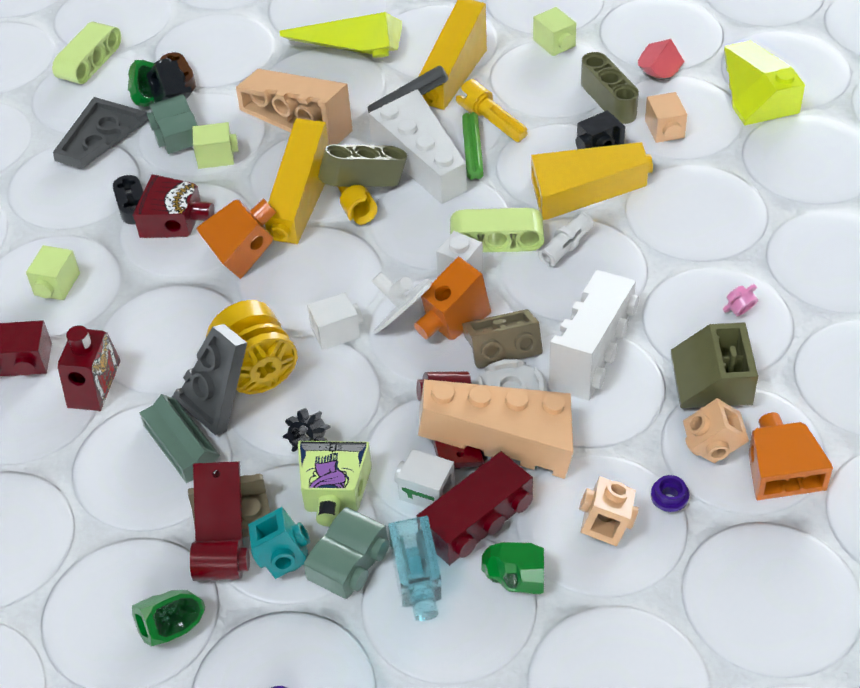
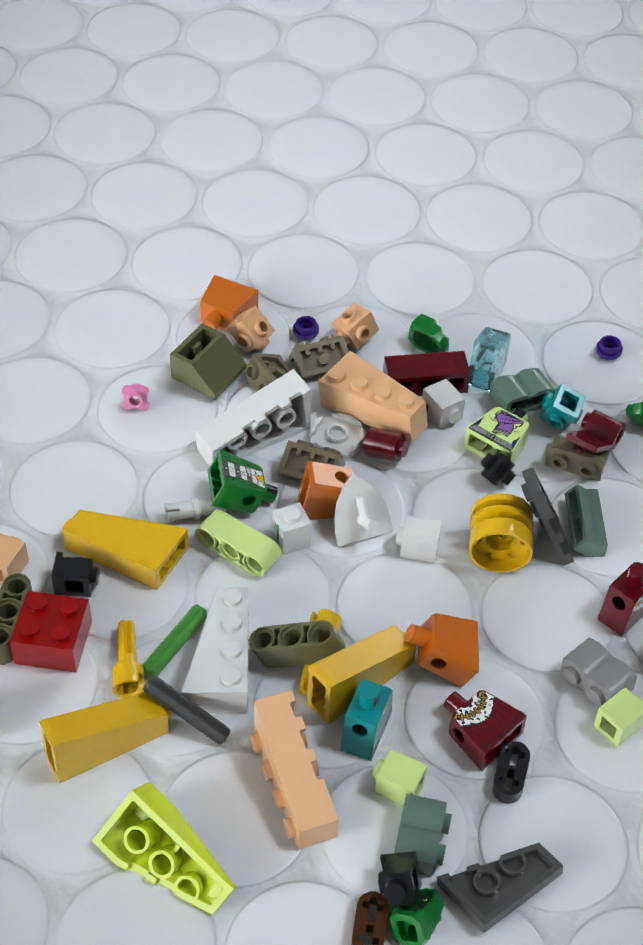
camera: 150 degrees left, 0 degrees up
(91, 296) = (596, 672): none -> light grey brick
(264, 146) = (372, 709): none -> teal torso
(542, 260) = (238, 484): none -> green torso
(566, 92) = (51, 631): none -> red brick
(615, 453) = (318, 357): none -> dark tan bracket
(634, 403) = (264, 370): none -> dark tan bracket

